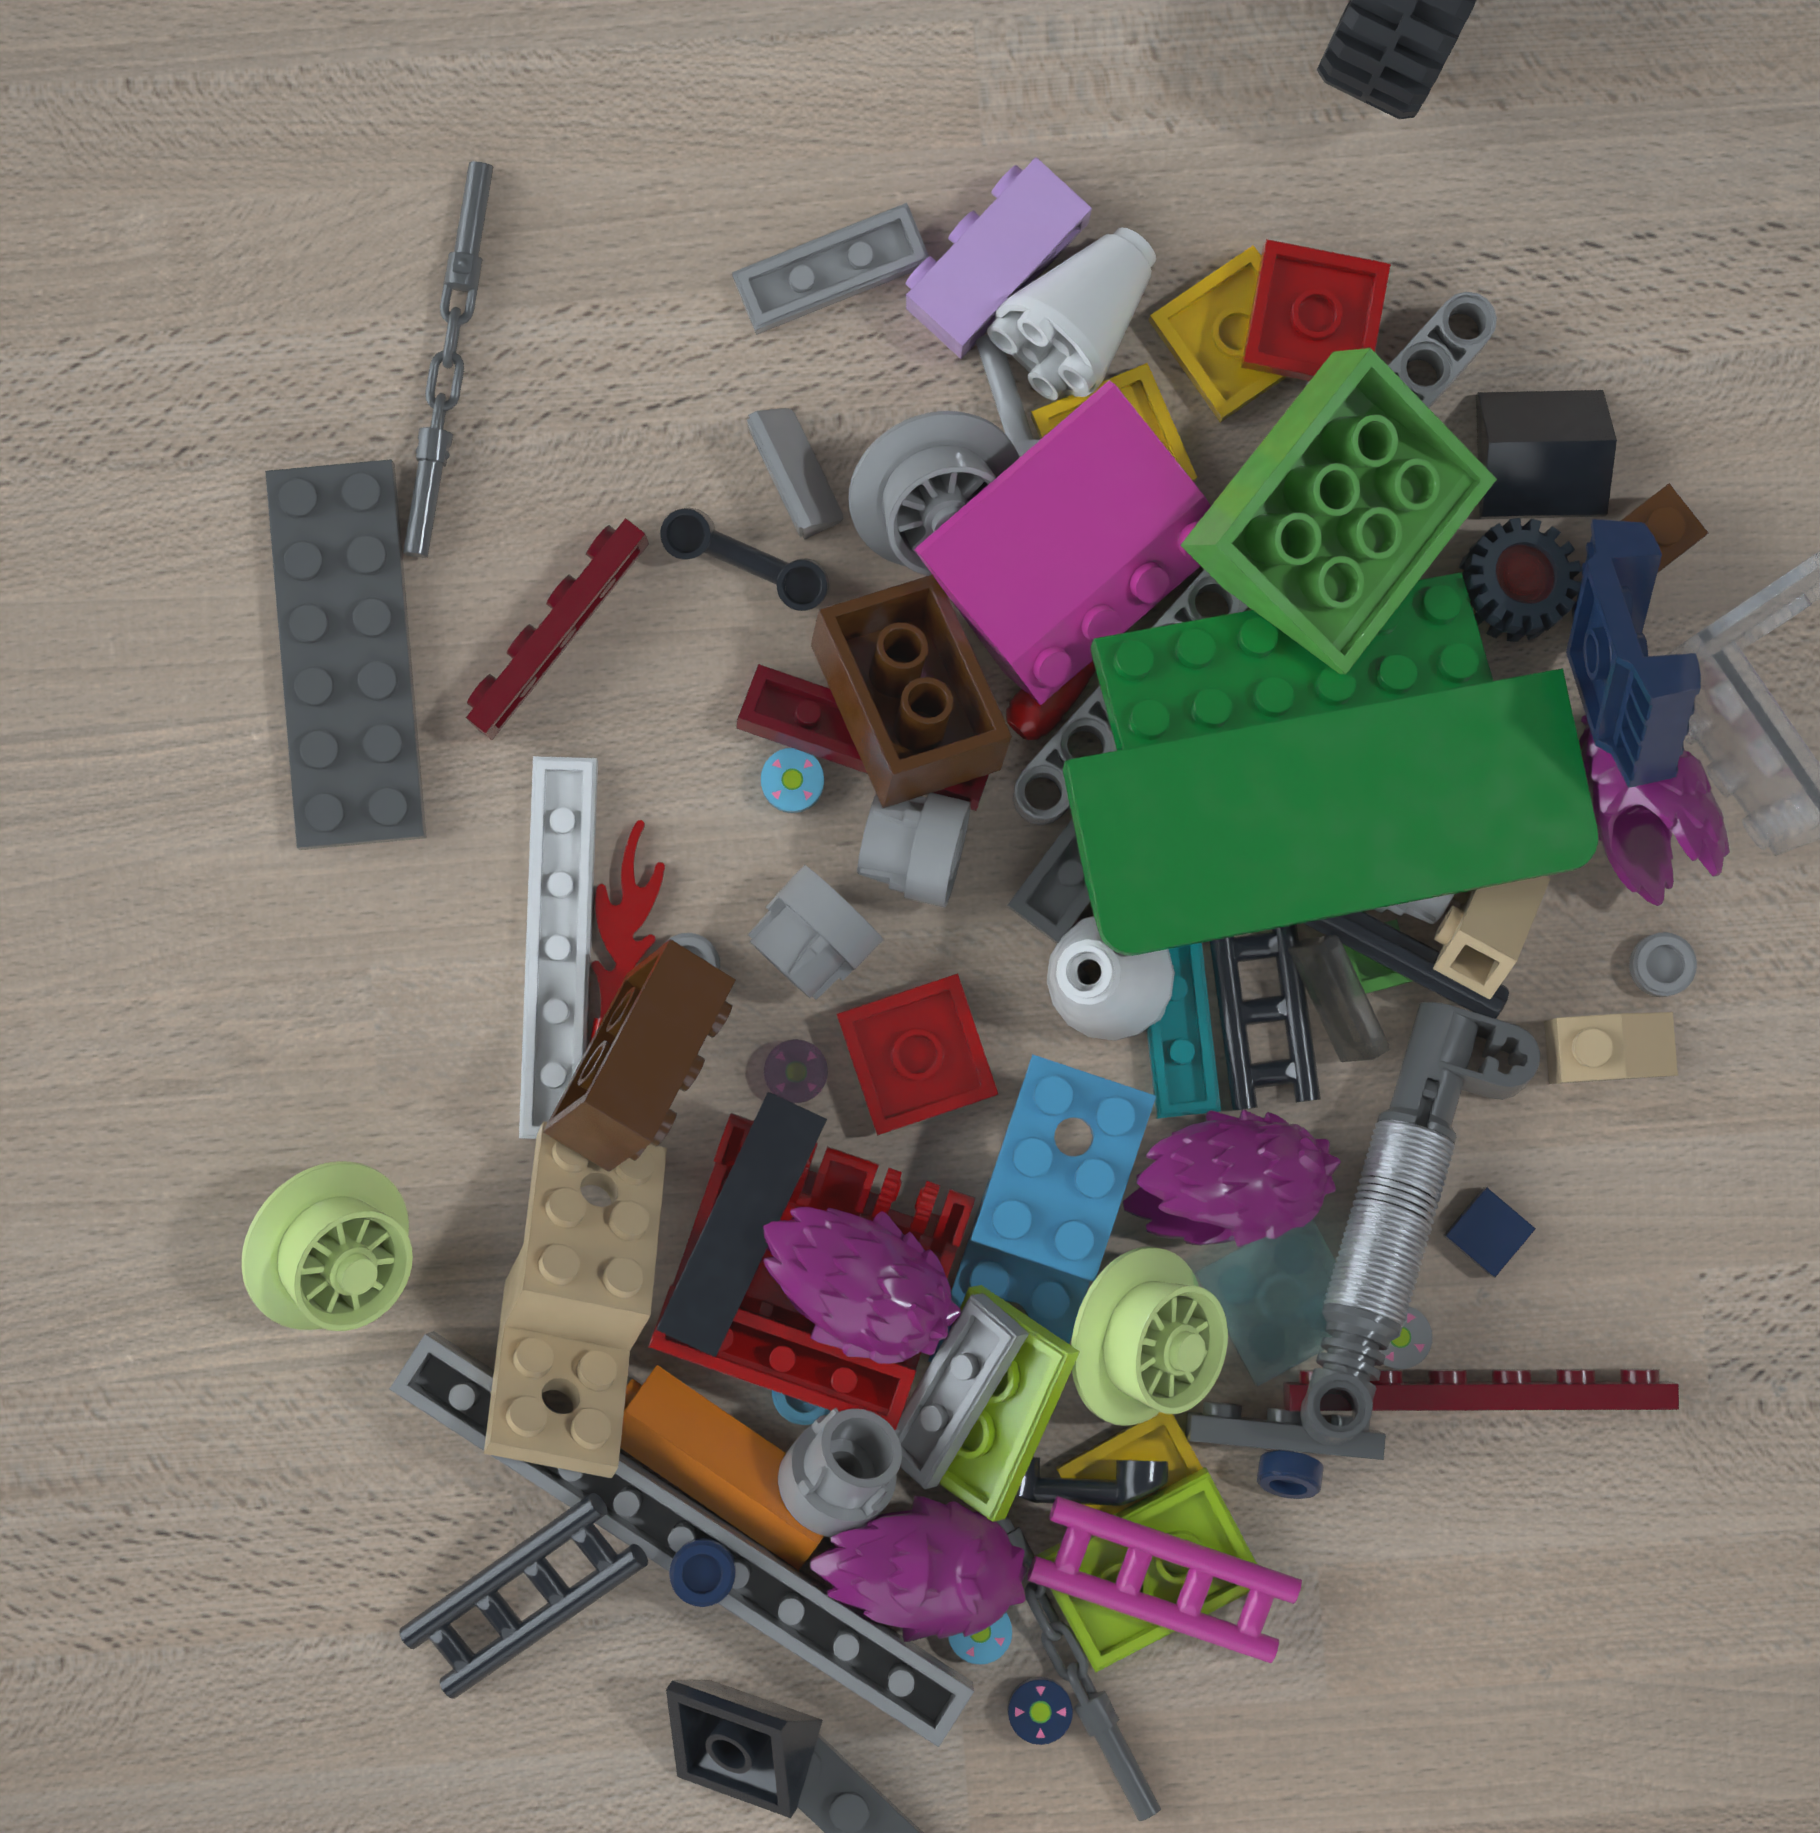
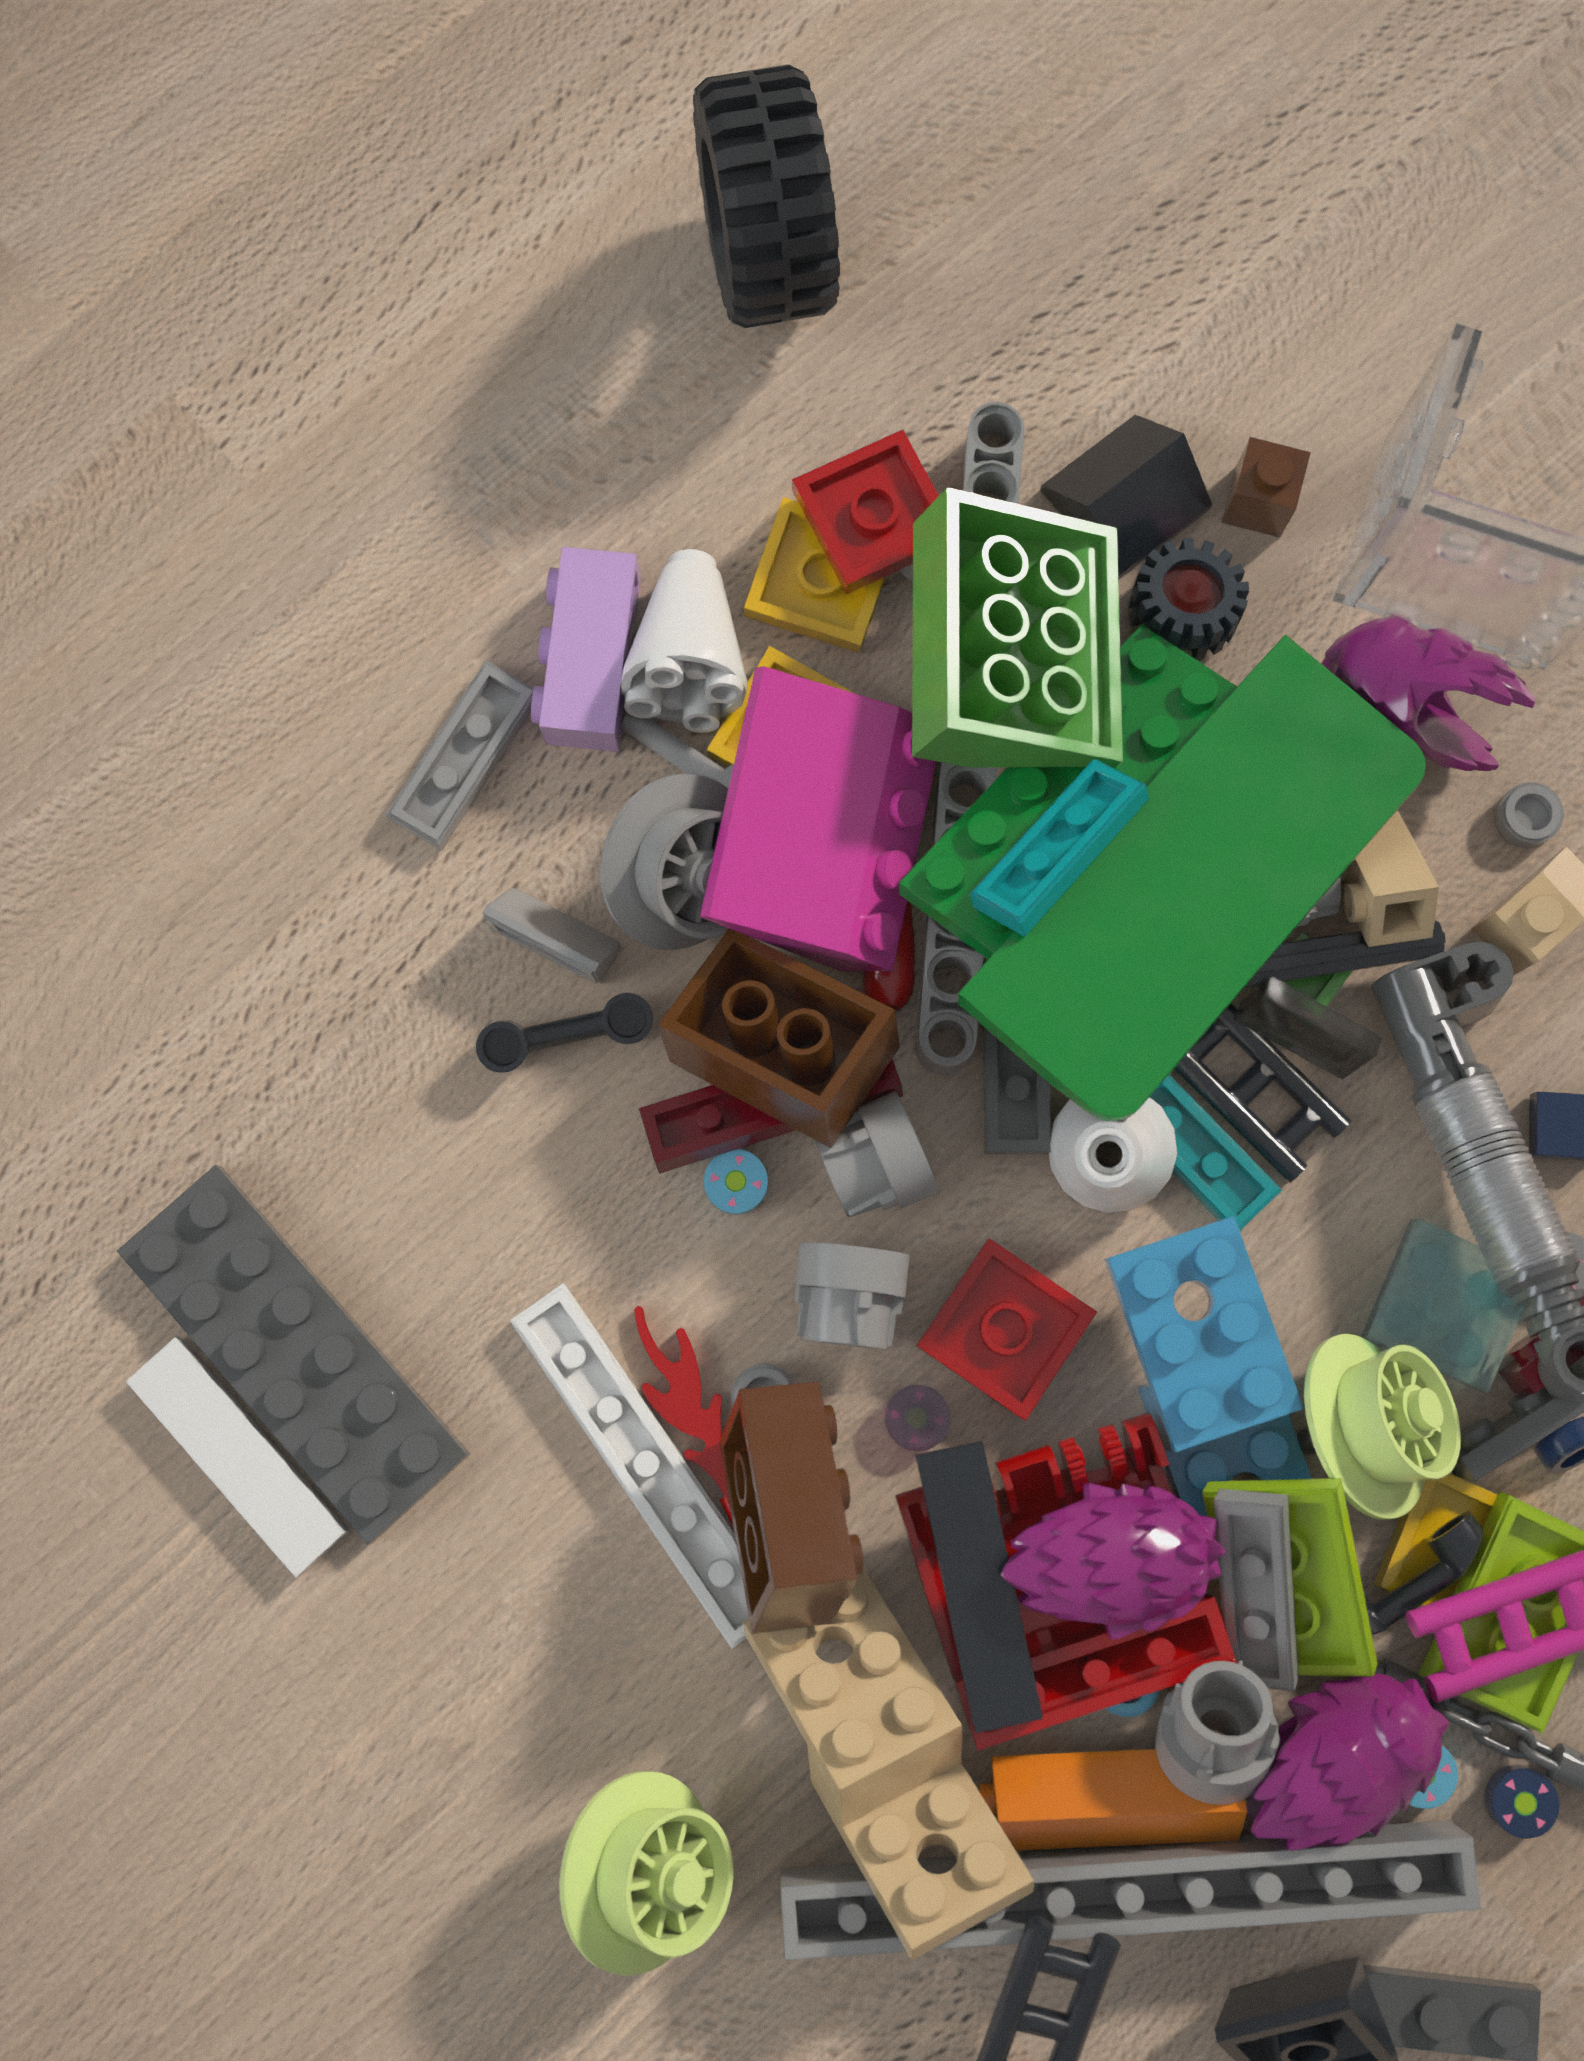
camera: 30 degrees left, 5 degrees down
(244, 703) = (237, 1456): none -> white tile
(461, 275) = (241, 1124): dark grey piece -> none
(539, 648) = (452, 1174): dark red plate -> none
(702, 1572) = (1171, 1914): dark blue tile -> none
(1233, 1180) = (1344, 1238): magenta head -> none
(1238, 704) = (1059, 847): none -> teal tile
(1630, 699) = (1347, 609): dark blue plate -> none

